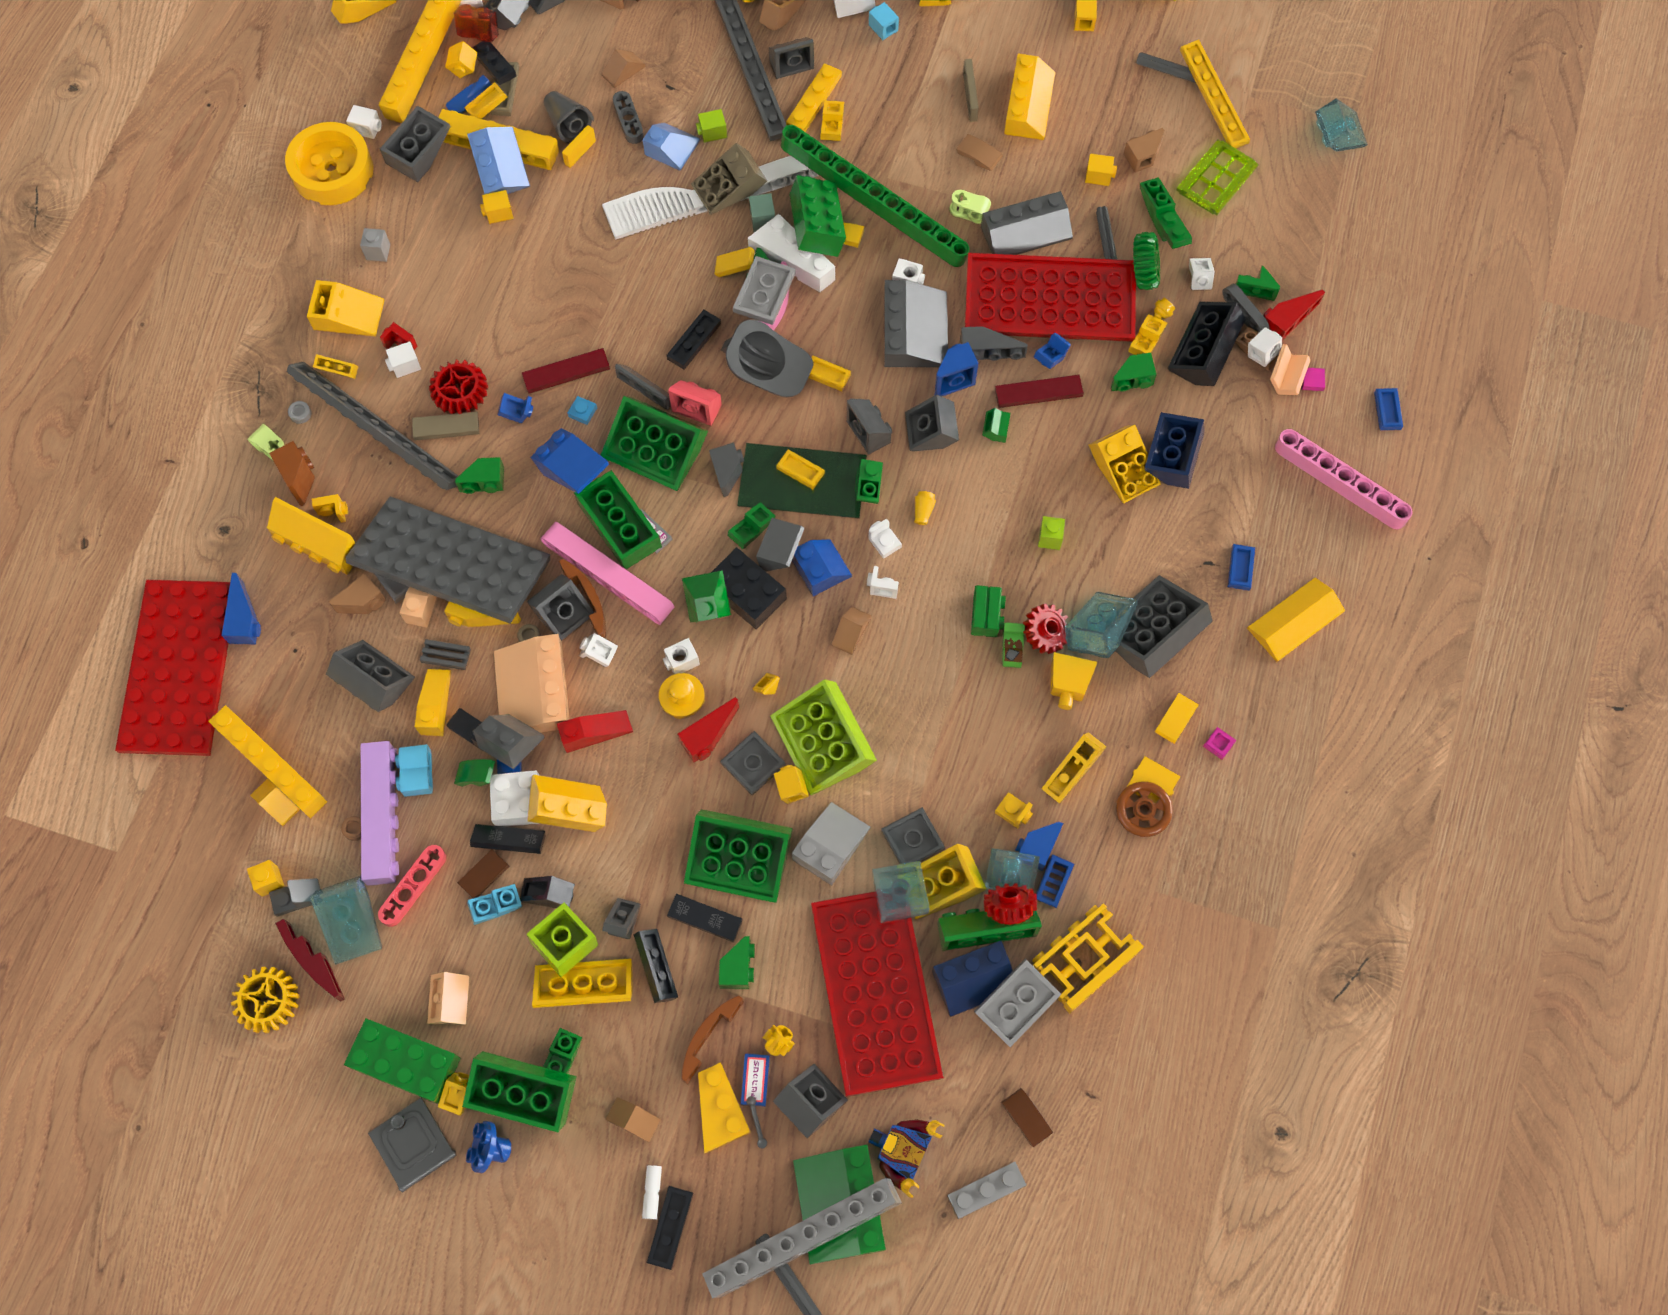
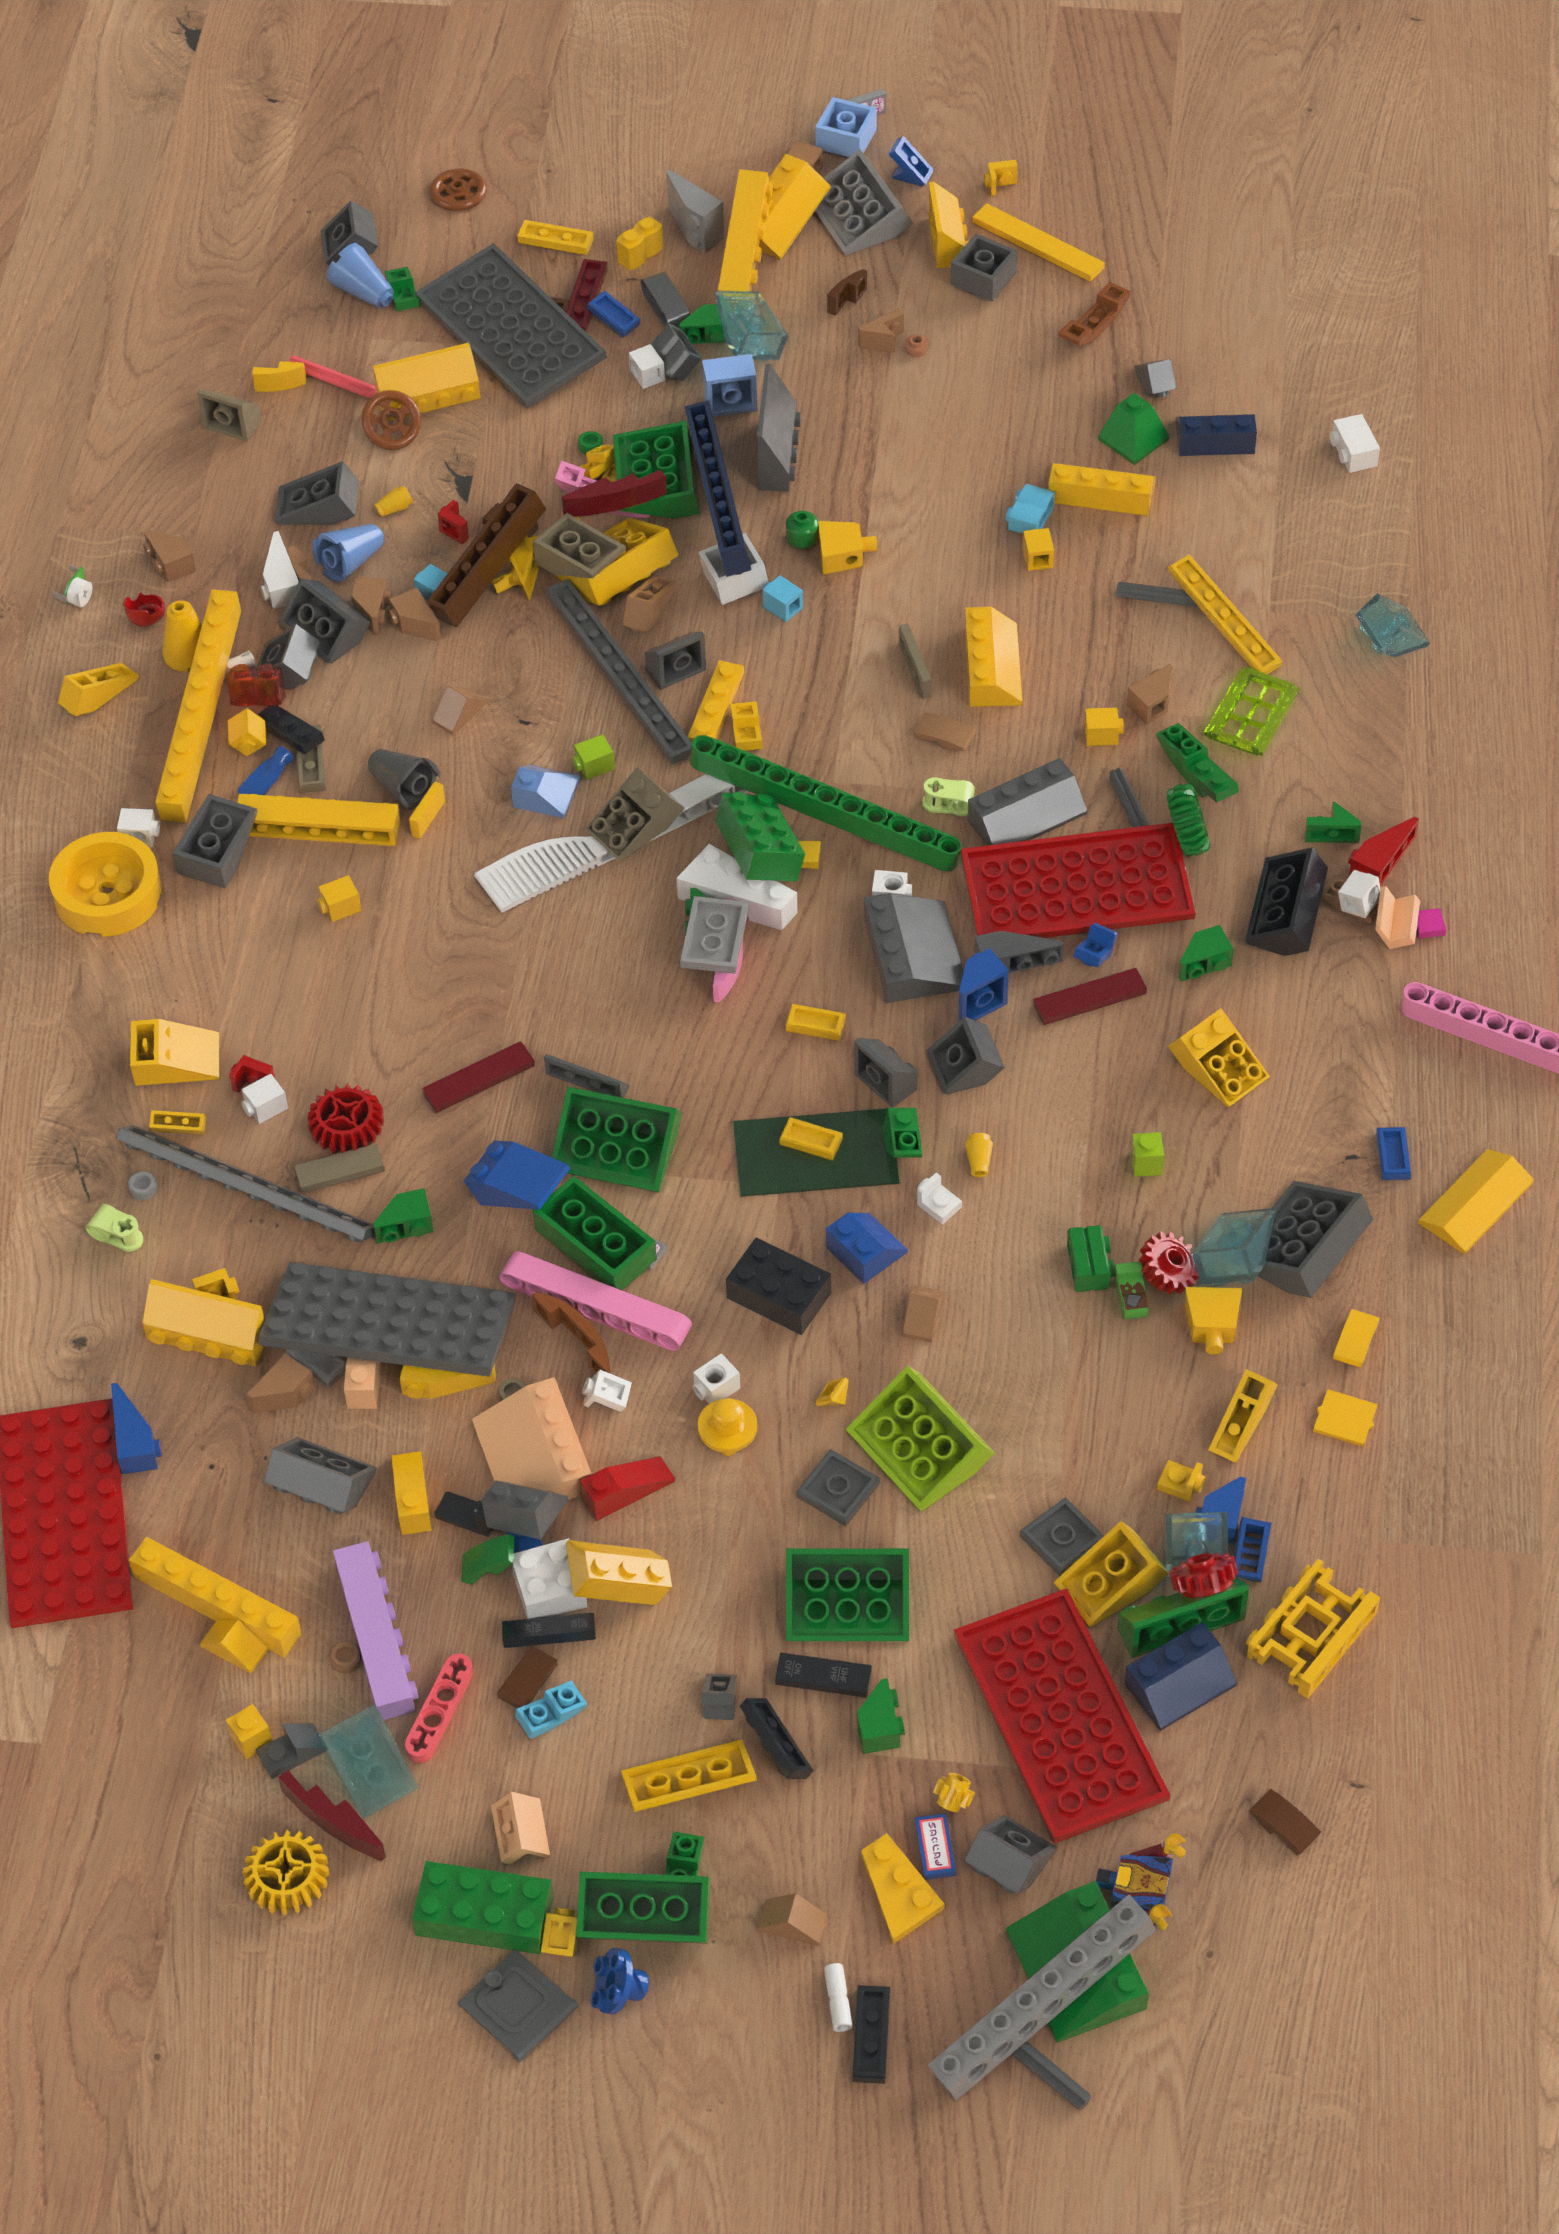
camera: 10 degrees left, 15 degrees down
(295, 469) = (158, 1247): dark orange slope -> none
(375, 244) = (192, 969): light grey brick -> none
(415, 770) = (408, 1572): medium azure brick -> none
(446, 646) = (410, 1430): dark grey tile -> none
(486, 101) = (292, 776): yellow tile -> none
(498, 160) = (330, 840): slope -> none
(515, 408) = (425, 1130): blue bracket -> none
(547, 891) = (616, 1679): black slope -> none
(561, 606) = (546, 1348): dark grey slope -> none
(562, 939) = (651, 1727): lime brick -> none
(582, 410) = (512, 1119): dark azure plate -> none
(628, 124) = (481, 775): dark grey beam -> none
(693, 339) = (635, 1011): black plate -> none
(694, 401) = (657, 1082): coral slope -> none
(705, 733) = (767, 1465): red slope -> none
(706, 596) = (731, 1302): green slope -> none
(727, 466) = (716, 1149): dark grey slope -> none
(727, 1011) = (877, 1775): dark orange slope -> none
(734, 262) = (665, 911): yellow tile -> none
(752, 525) = (766, 1214): green slope -> none
(761, 210) = (683, 845): sand green piece -> none
(762, 1142) = (962, 1915): dark grey hinge -> none
(767, 359) = (736, 1016): dark grey piece -> none
(779, 545) = (810, 1224): dark grey slope -> none
(791, 784) = (894, 1499): yellow brick -> none
(830, 843) = (959, 1561): light grey slope -> none
(882, 587) = (950, 1254): white bracket -> none
(900, 891) = (1064, 1588): clear light blue brick -> none
(986, 1190) = (1255, 1914): light grey plate -> none
(996, 425) = (1046, 1044): green piece -> none
(1017, 1002) = (1240, 1691): light grey plate -> none
(1132, 824) = (1331, 1468): dark orange plate -> none
(1148, 335) = (1211, 907): yellow slope -> none
(1161, 307) = (1222, 874): yellow plate -> none
(1175, 449) = (1278, 1030): dark blue slope -> none
(1202, 273) = (1261, 825): white bracket -> none
(1219, 743) = (1416, 1358): dark pink tile -> none
(1253, 317) = (1337, 863): dark grey beam -> none
(1388, 409) = (1530, 941): blue tile -> none

